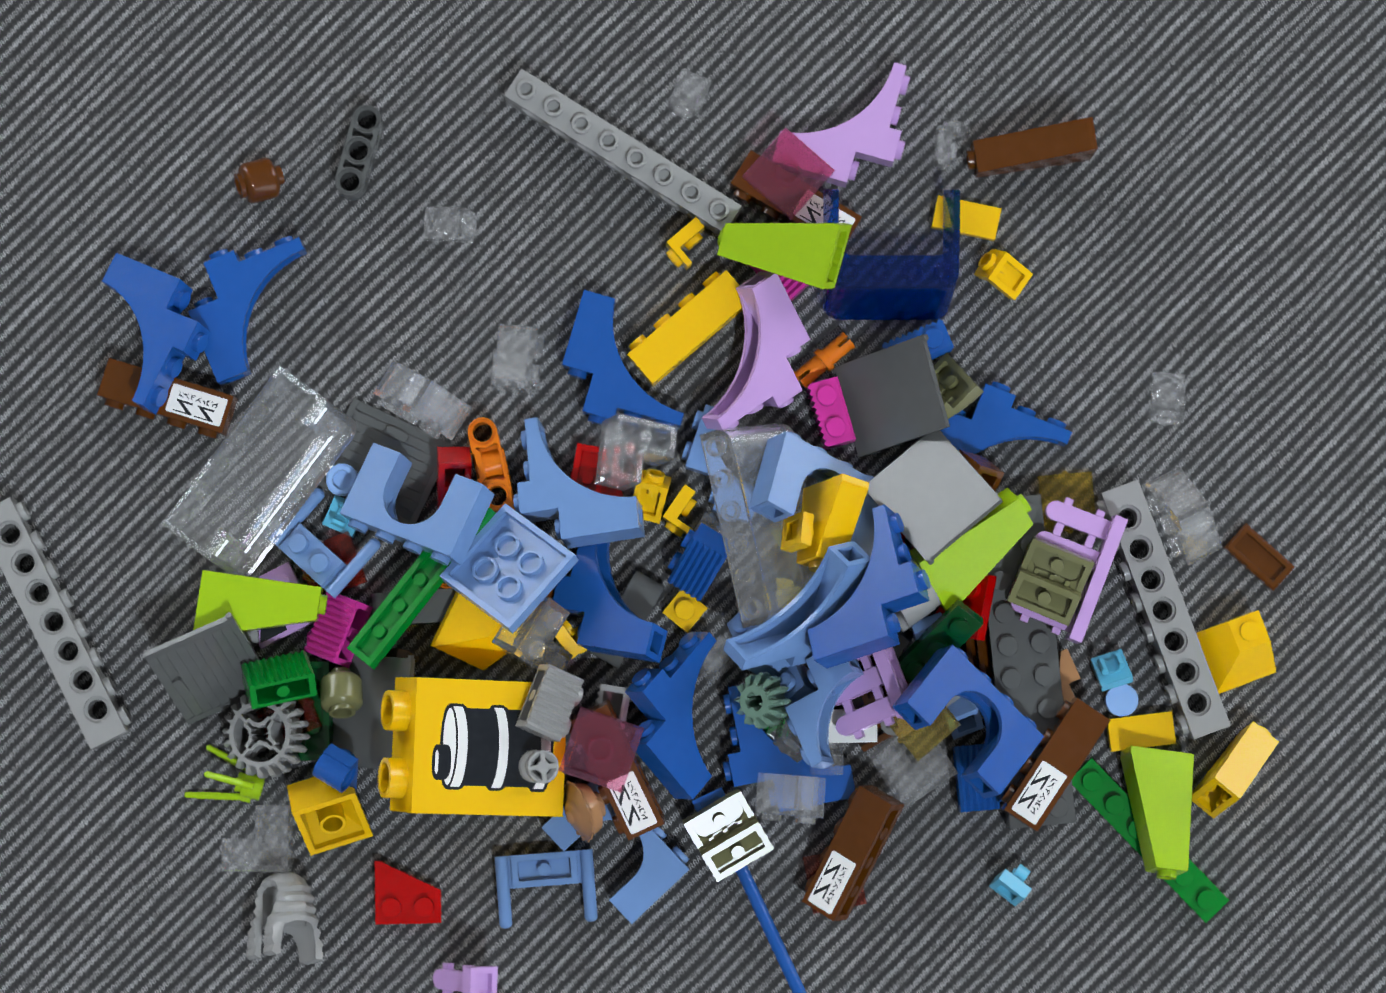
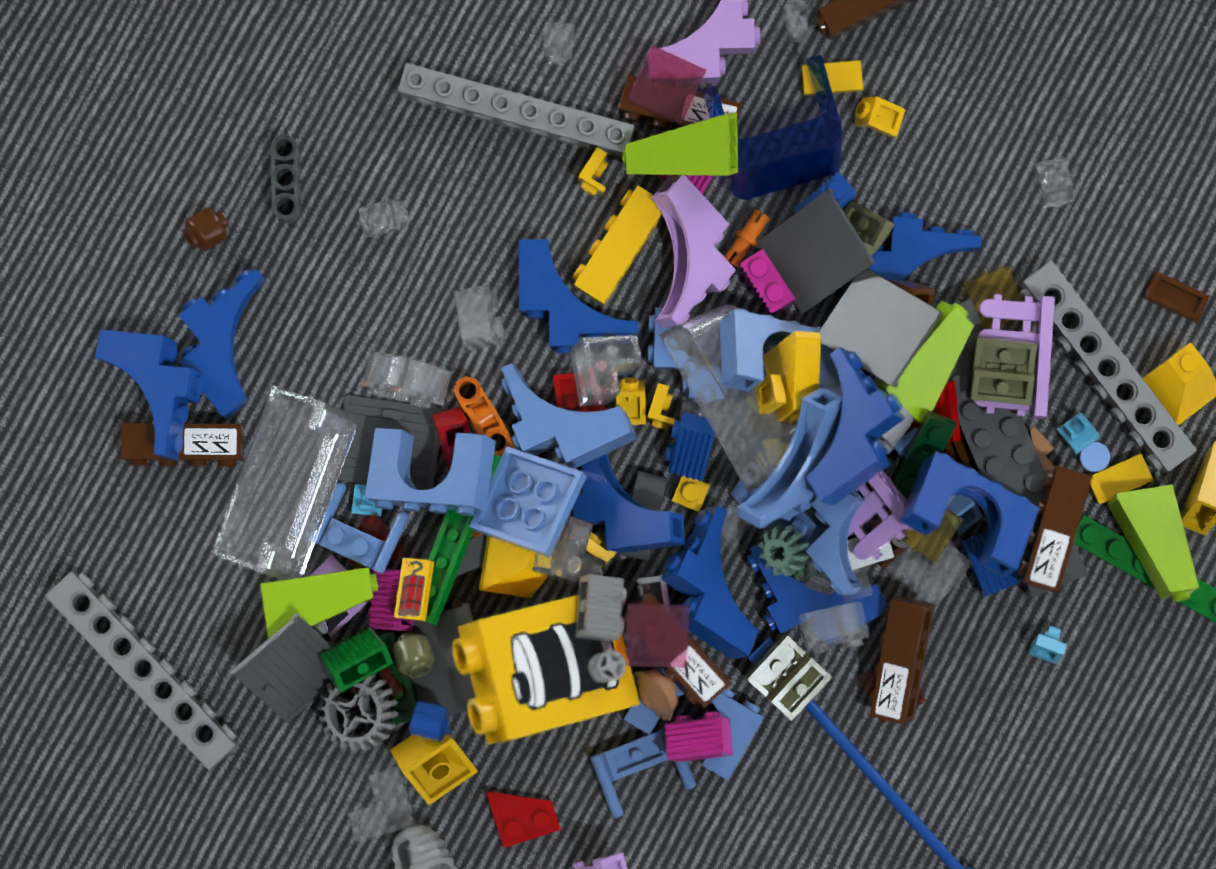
camera: 10 degrees left, 0 degrees up
(248, 786) = (356, 761): lime plant -> none
(341, 479) = (356, 468): light blue tile -> none
(362, 624) = (414, 589): none -> tile
(613, 870) = (698, 738): none -> dark pink brick
(1183, 516) = (1101, 280): clear brick -> none

